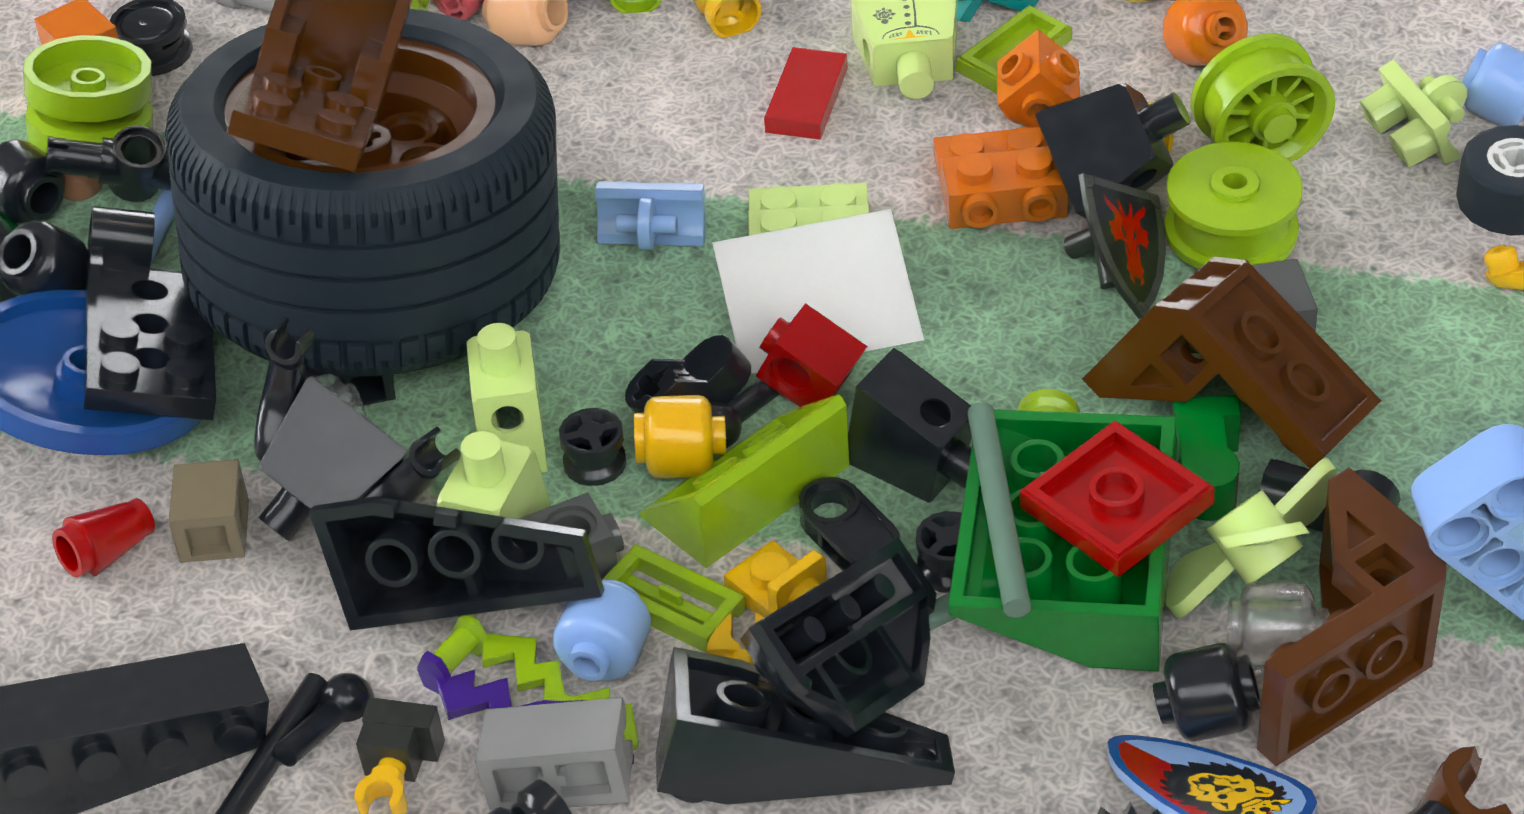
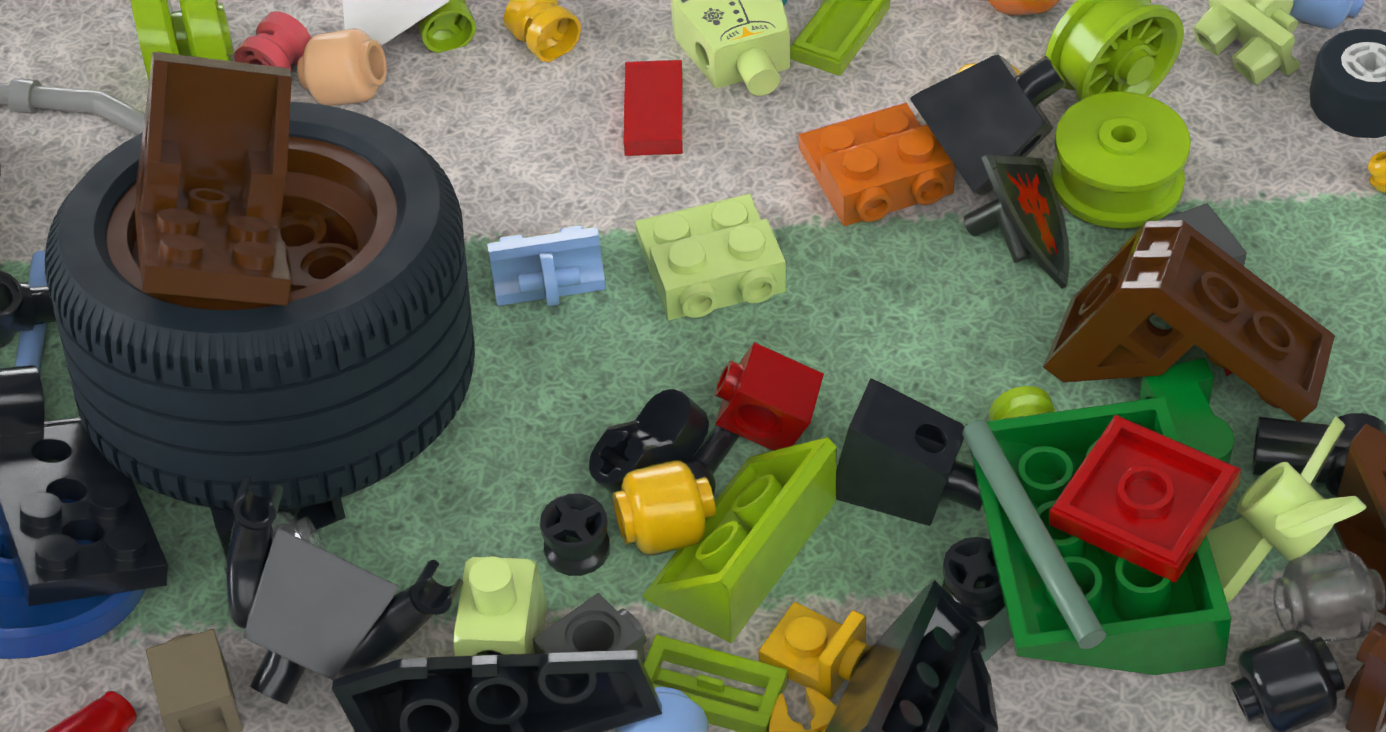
camera: 15 degrees left, 5 degrees up
(505, 375) = (466, 484): yellowish green torso -> none
(839, 267) = (747, 295): white sticker -> none
(853, 533) = (878, 579): black piece -> none
(1035, 78) = (885, 60): orange brick -> none

